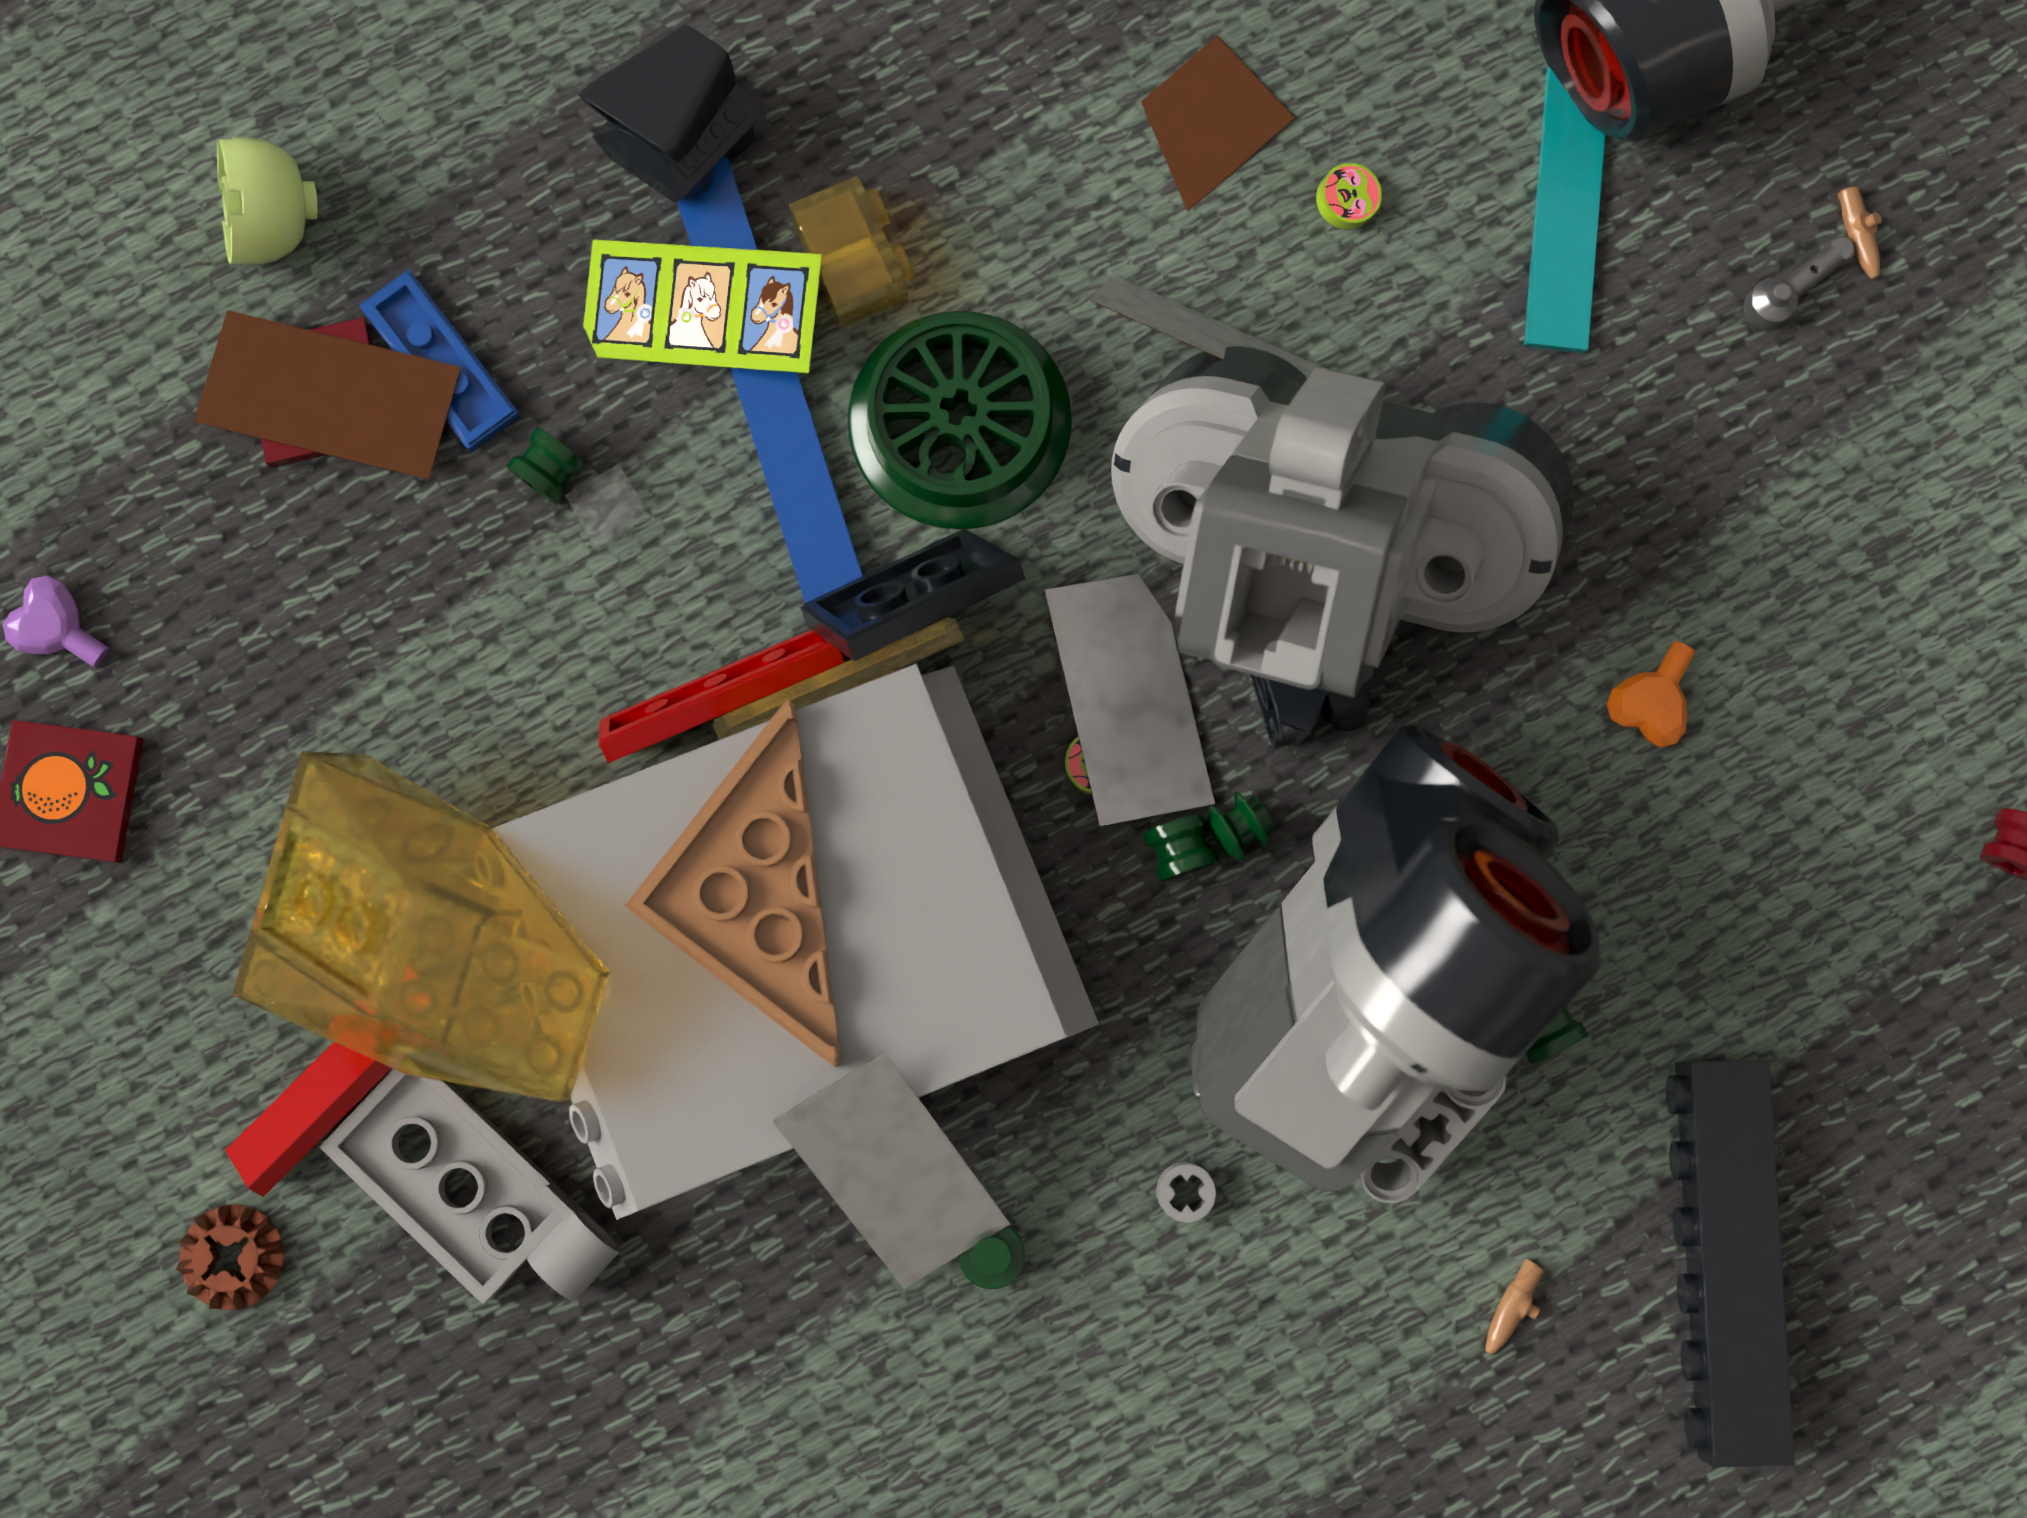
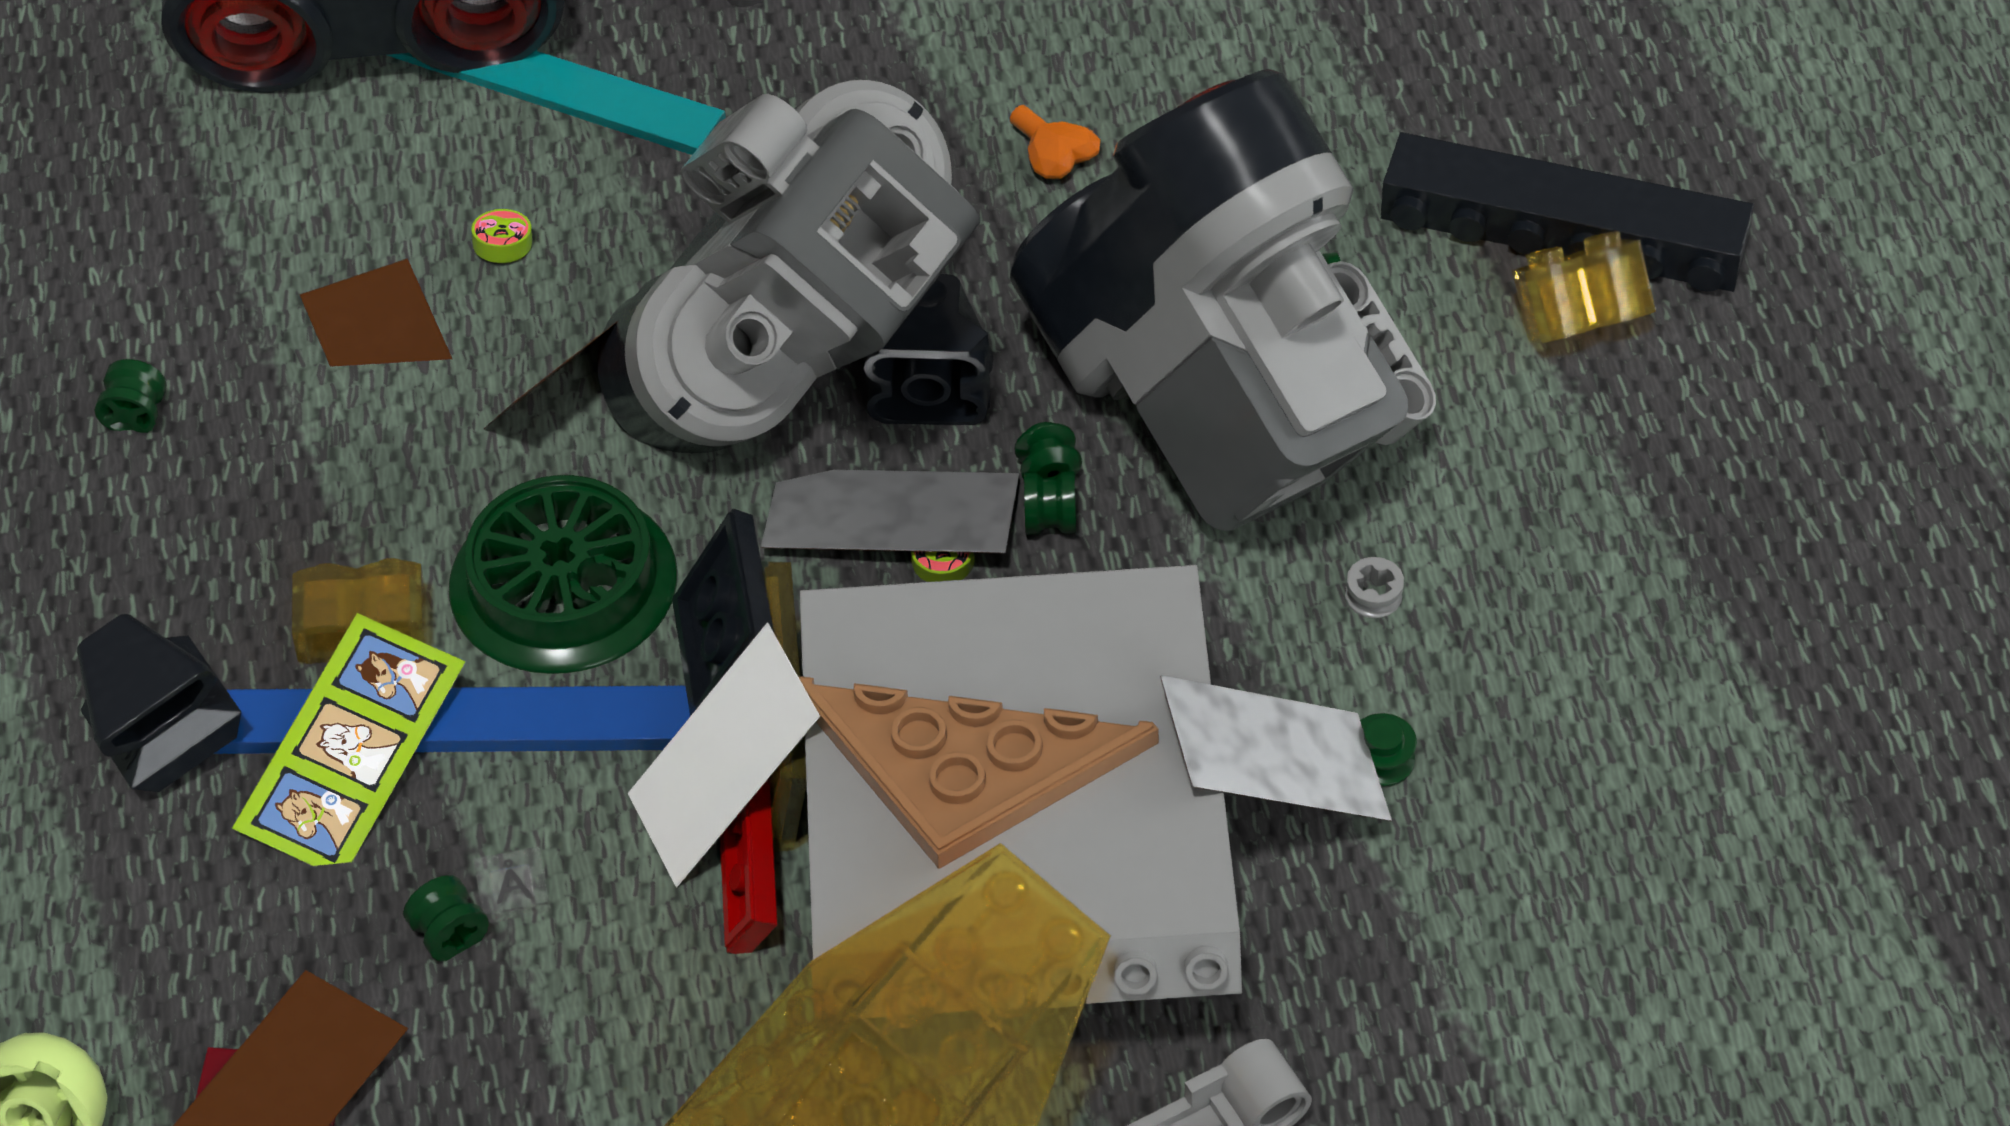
camera: 70 degrees left, 30 degrees down
(417, 327) = (232, 1009): blue tile -> none
(747, 654) = (723, 754): none -> white sticker
(1514, 1306) = (1559, 379): medium nougat helmet -> none
(1621, 1309) = (1583, 289): none -> clear yellow brick

